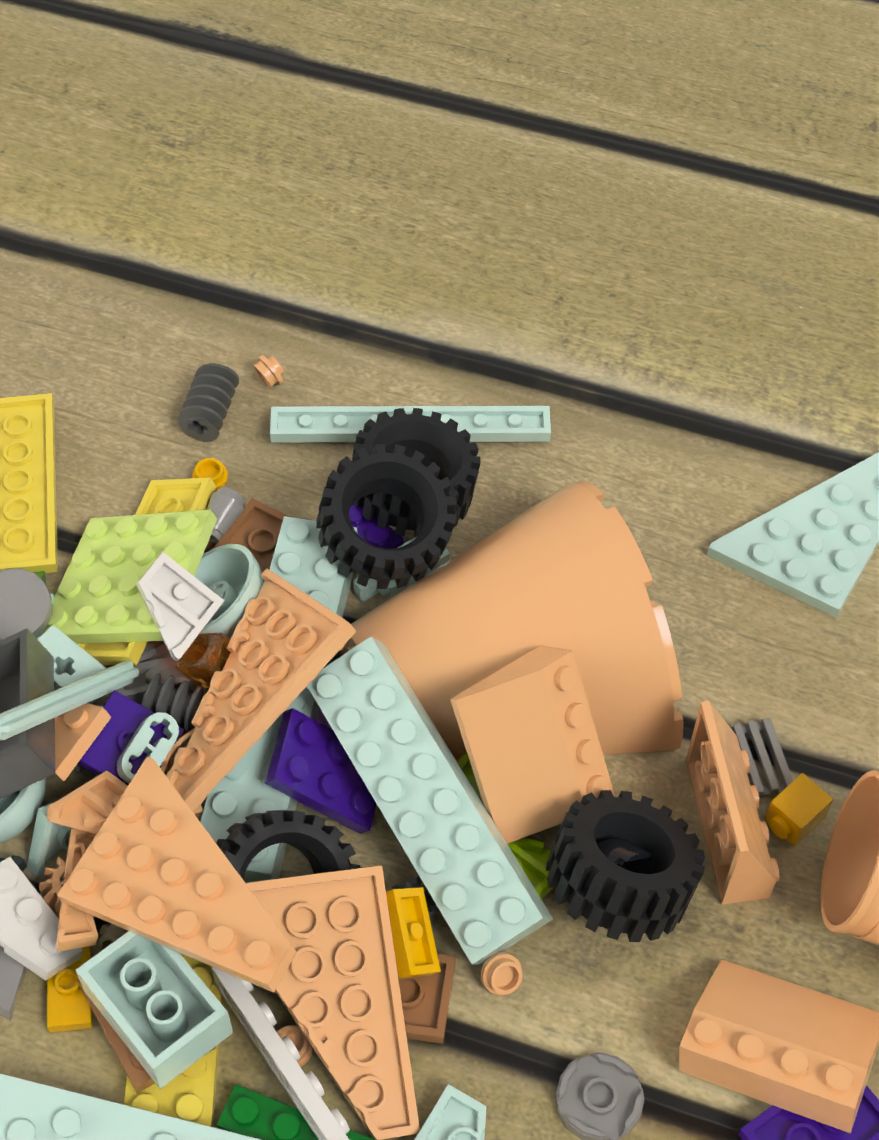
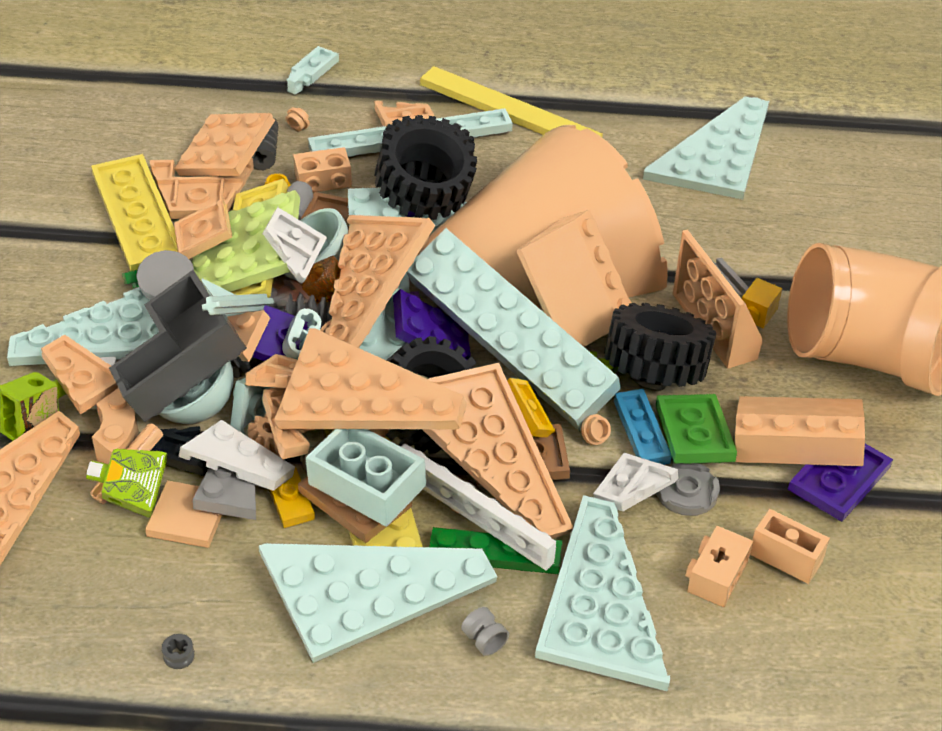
camera: 15 degrees left, 10 degrees down
(81, 541) = (203, 229): none -> light nougat plate
(109, 473) = (190, 194): none -> light nougat wing
(156, 402) = (224, 144): none -> light nougat plate
(274, 463) = (323, 169): none -> light nougat brick
(313, 289) = (311, 68): none -> light aqua hinge
(411, 387) = (403, 109): none -> light nougat wing
(523, 1076) = (634, 480): none -> white wing
(566, 407) = (489, 99): none -> light yellow tile
(566, 987) = (642, 426): none -> dark azure plate
(637, 1008) = (695, 429): none -> bright green plate

